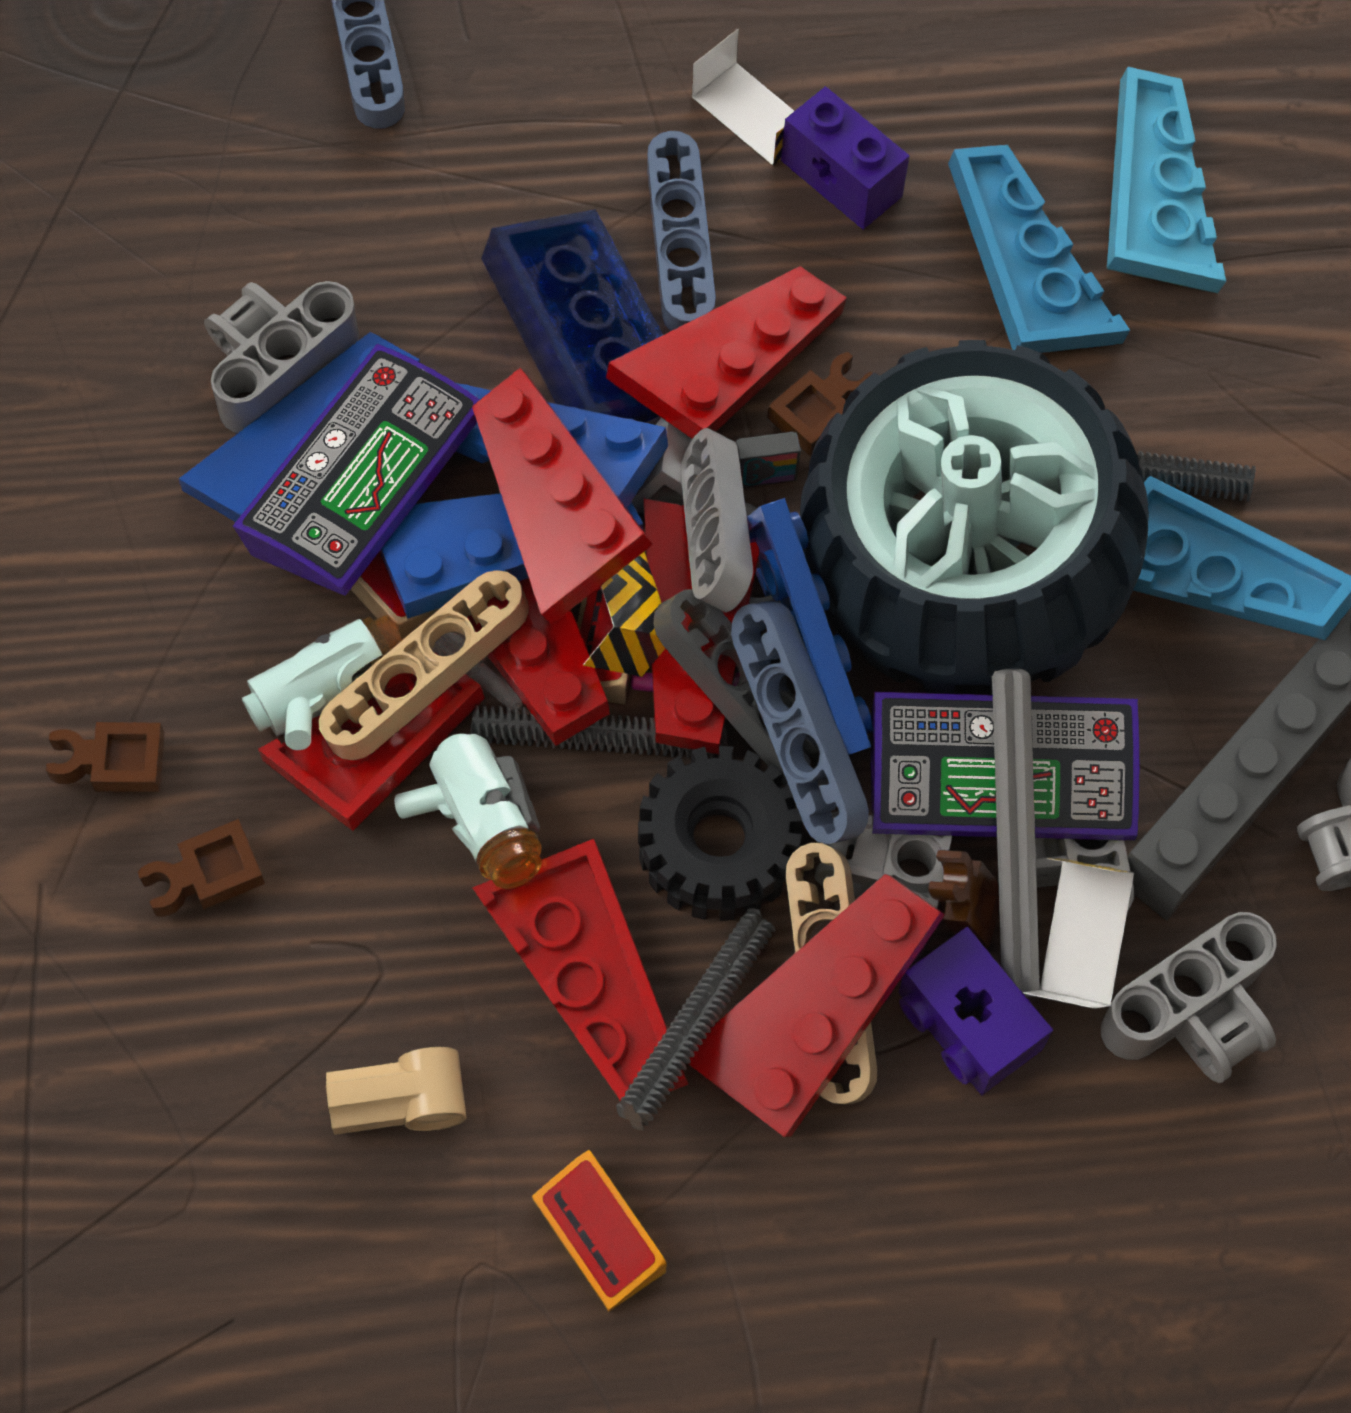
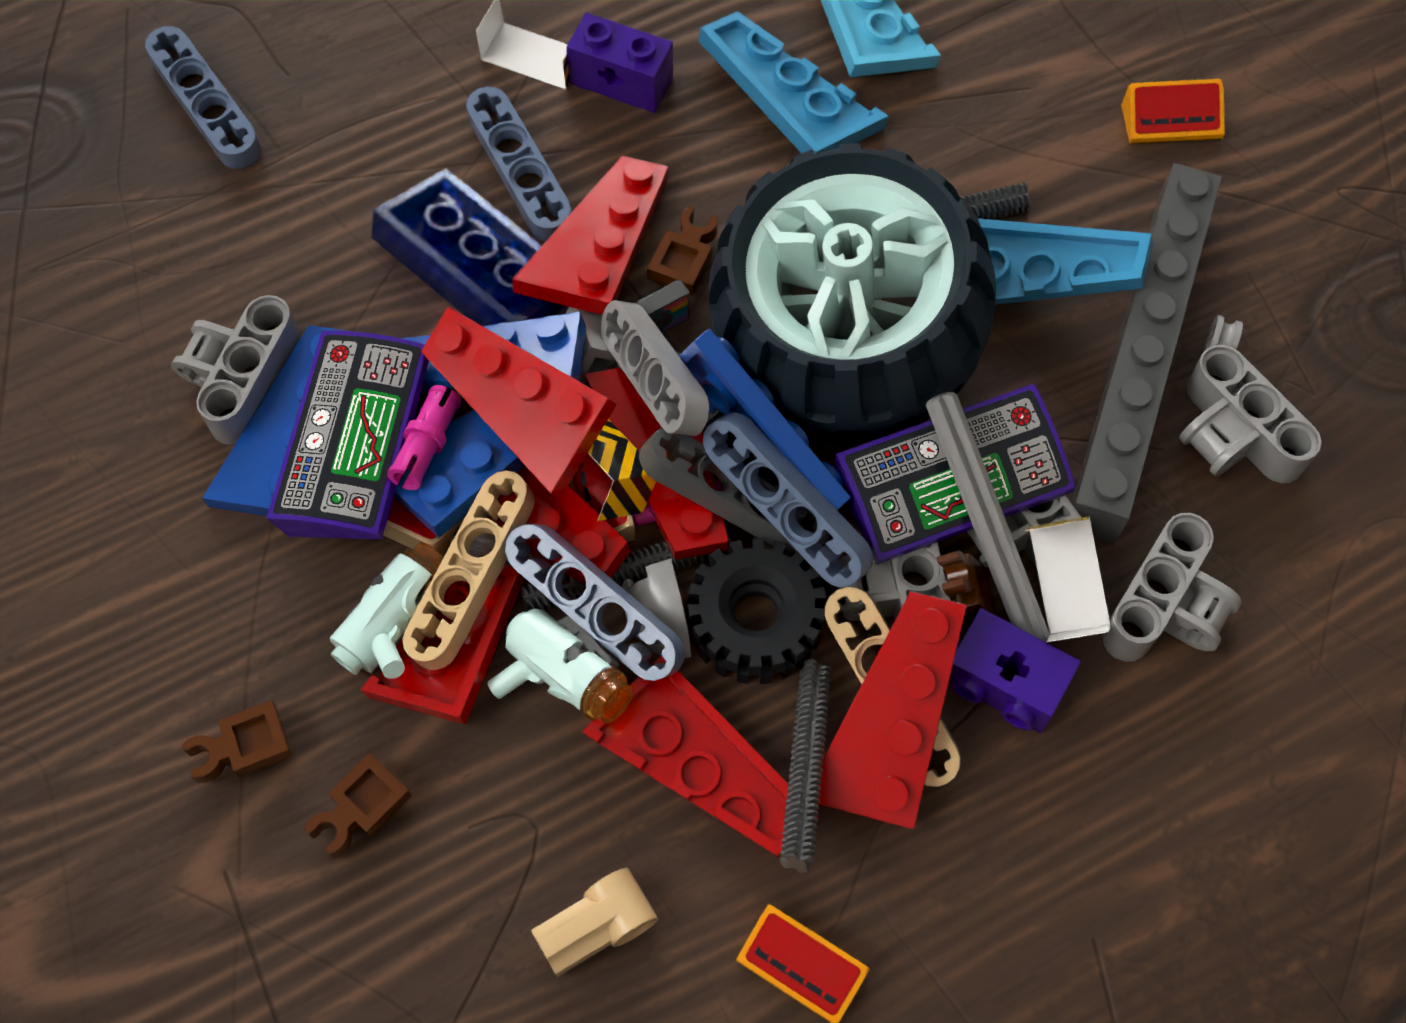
camera: 20 degrees left, 0 degrees up
(436, 502) = (424, 437): none -> dark pink pin
(535, 755) = (589, 608): none -> beam
(611, 791) = (662, 598): none -> light grey brick

